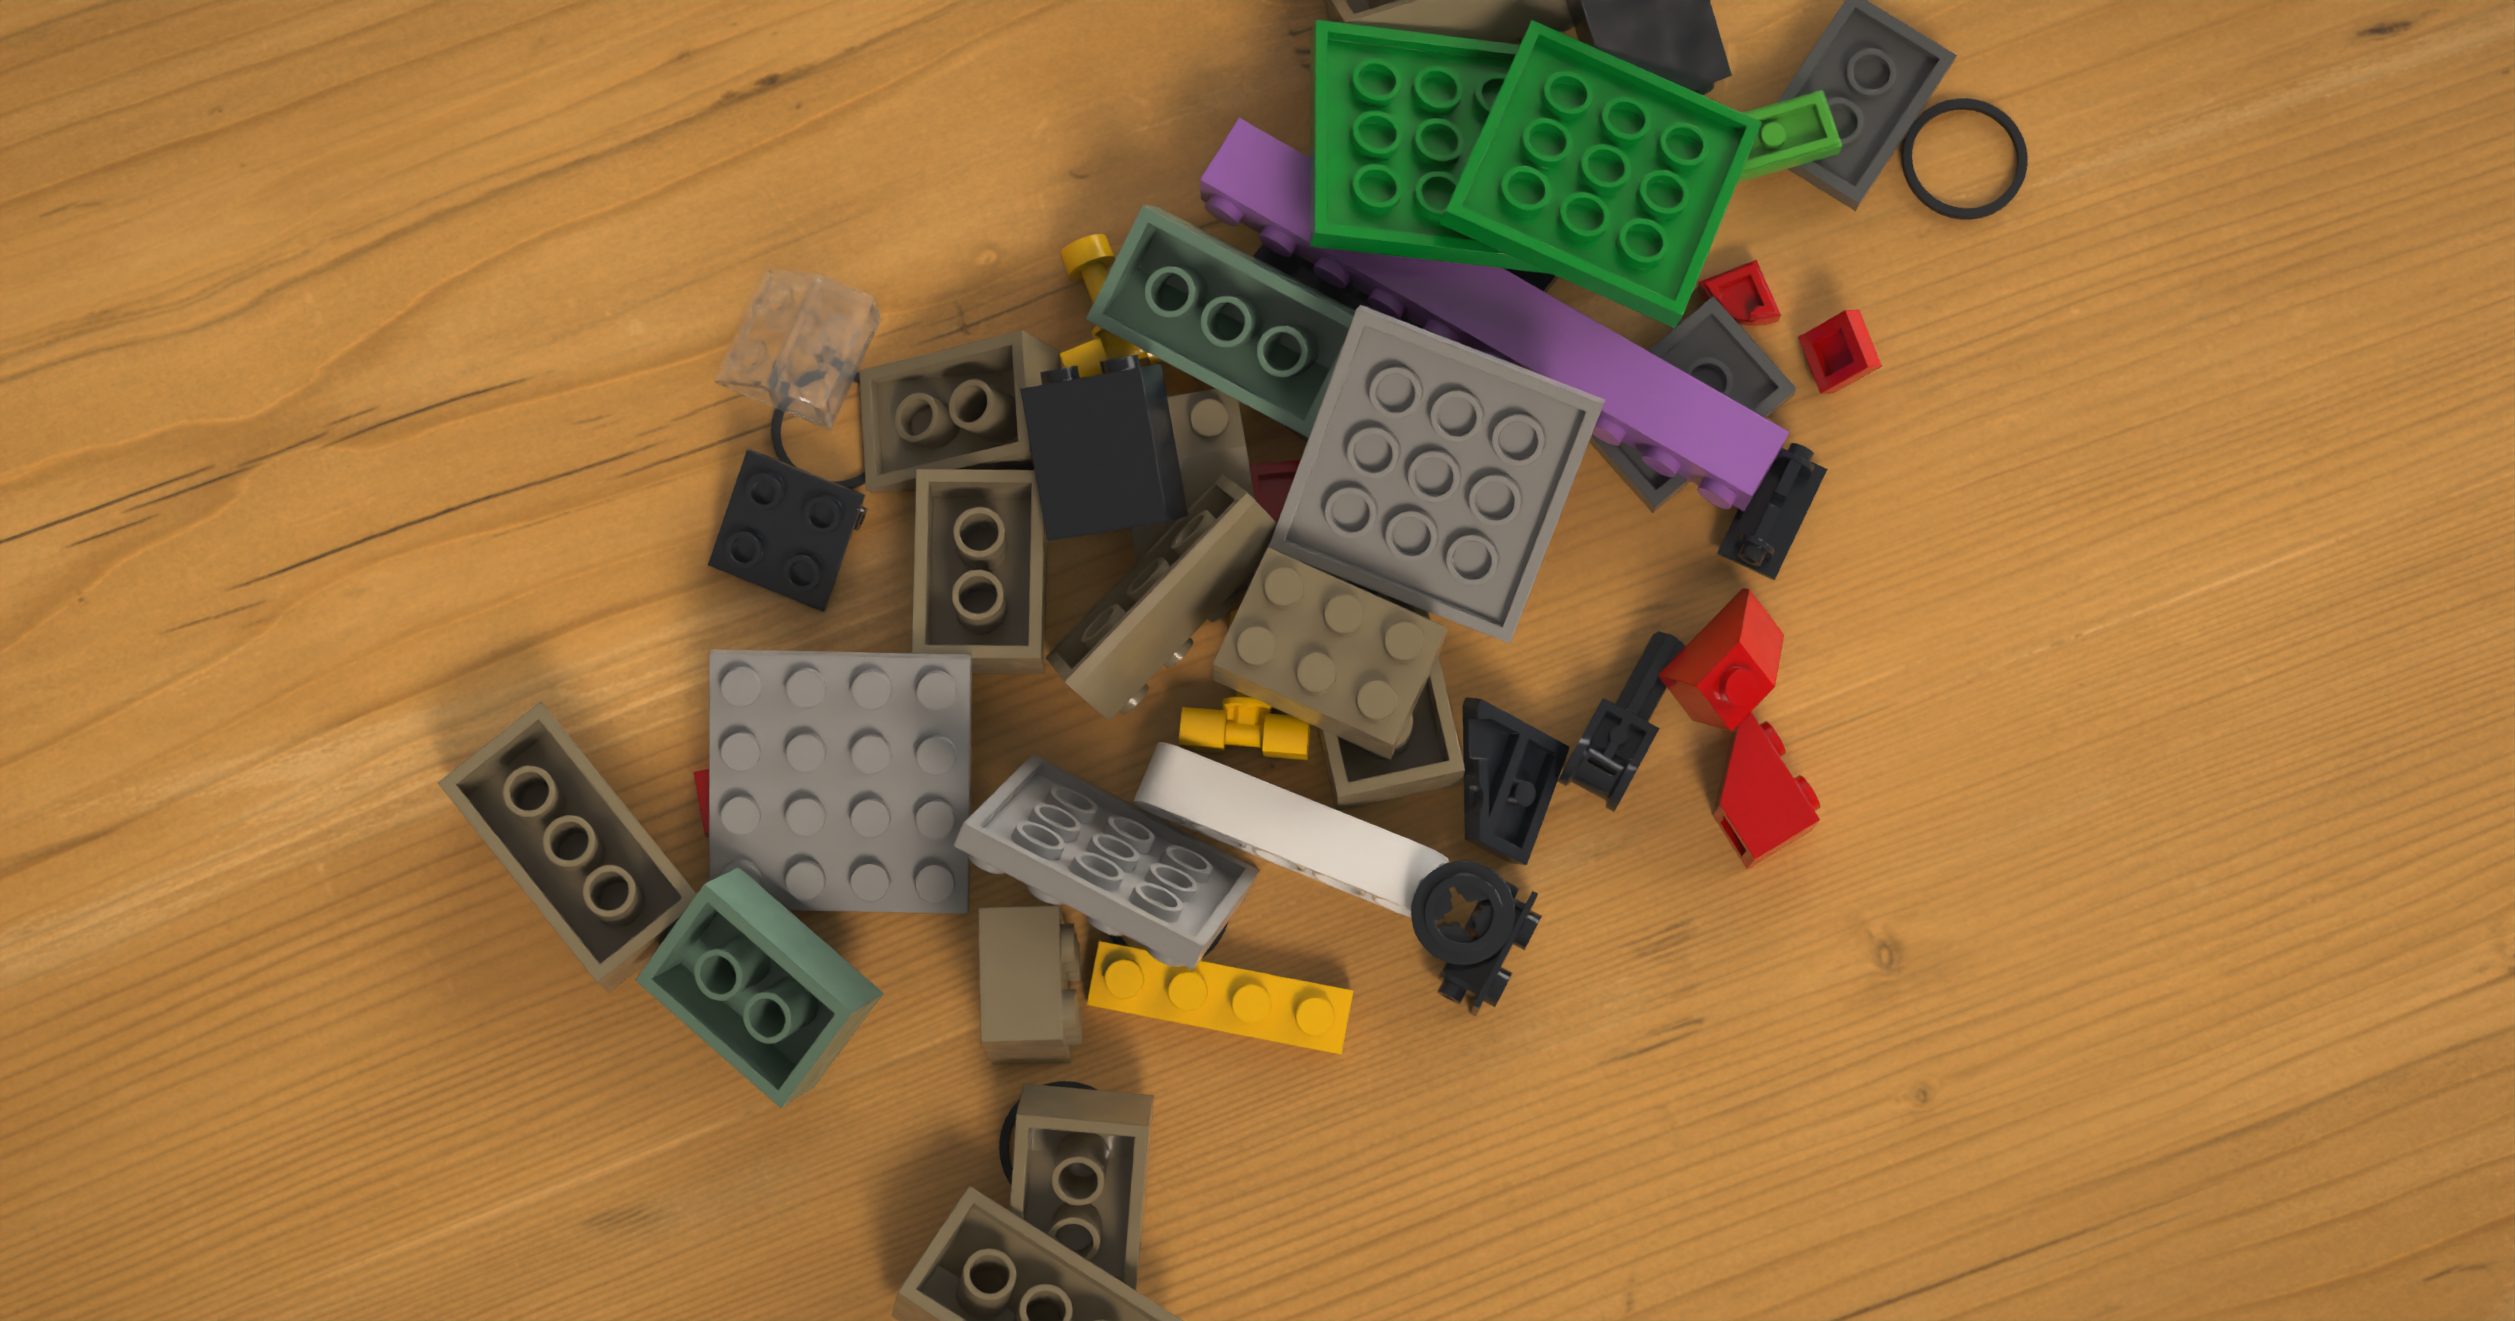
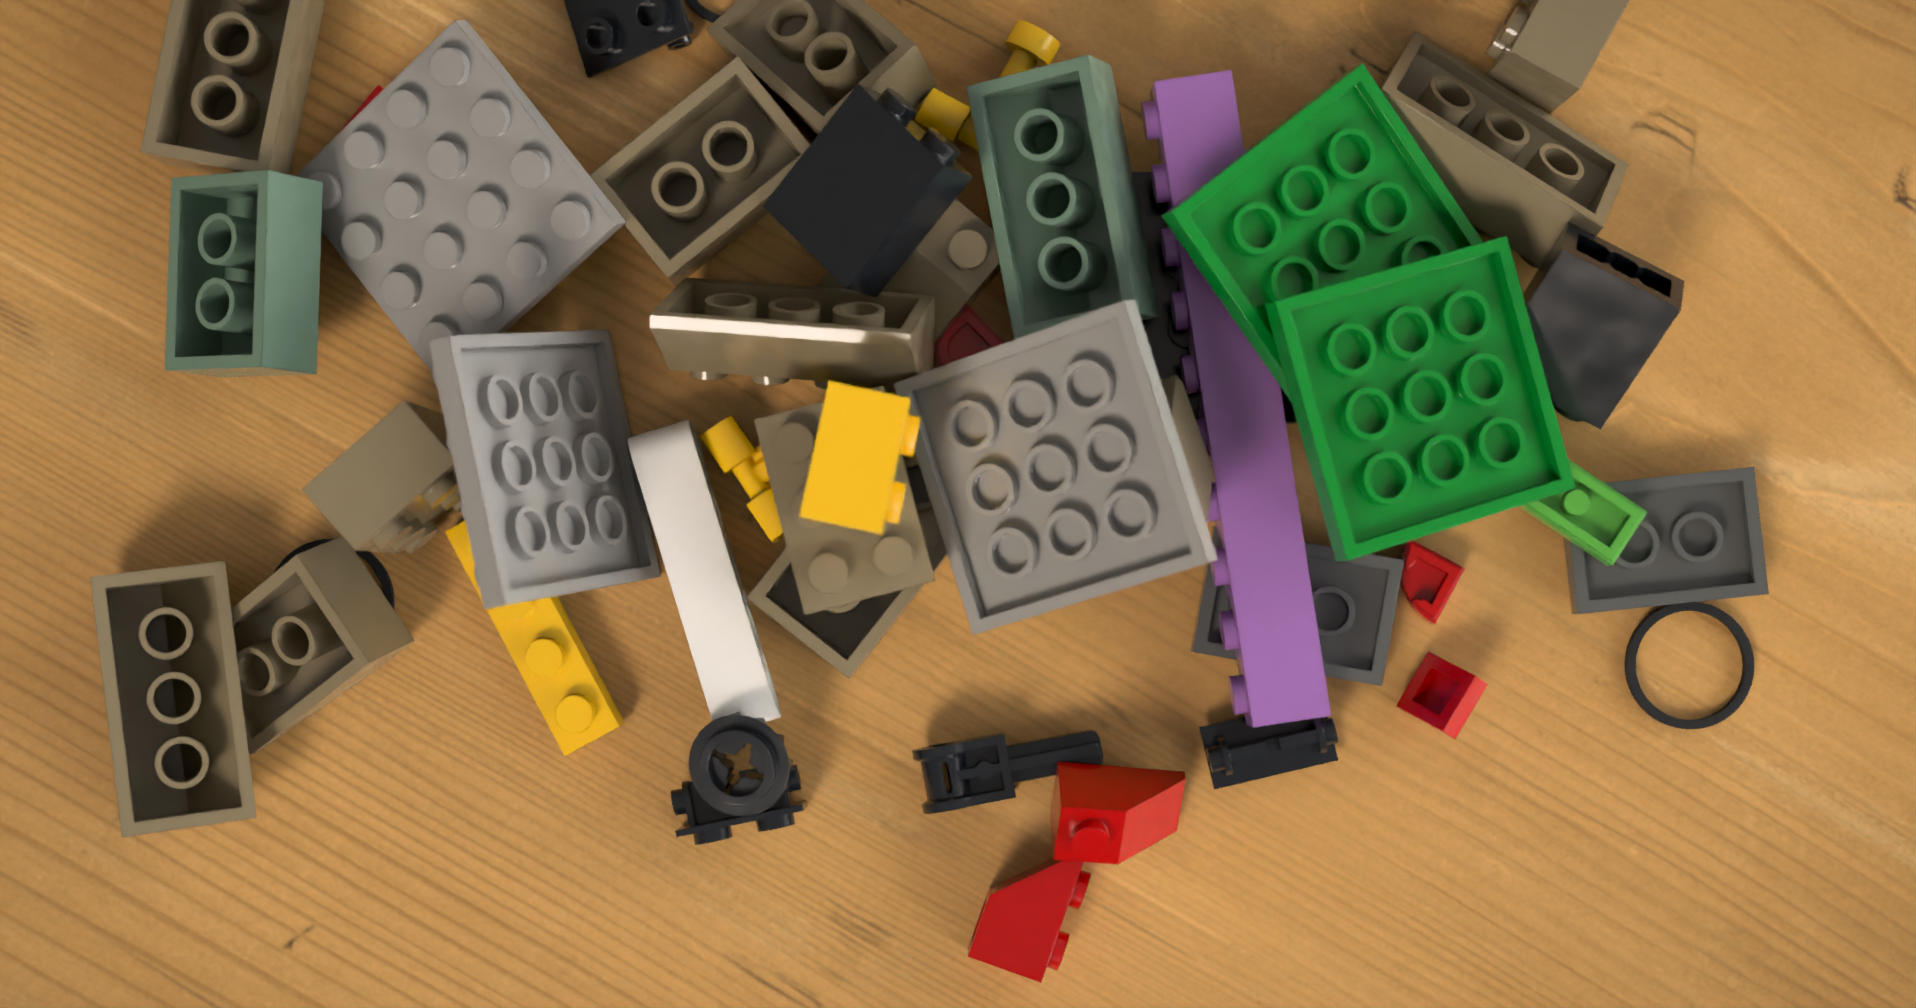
camera: 55 degrees right, 10 degrees up
(1312, 599) = (858, 459): none -> yellow brick
(1506, 779) = (877, 712): black wing -> none

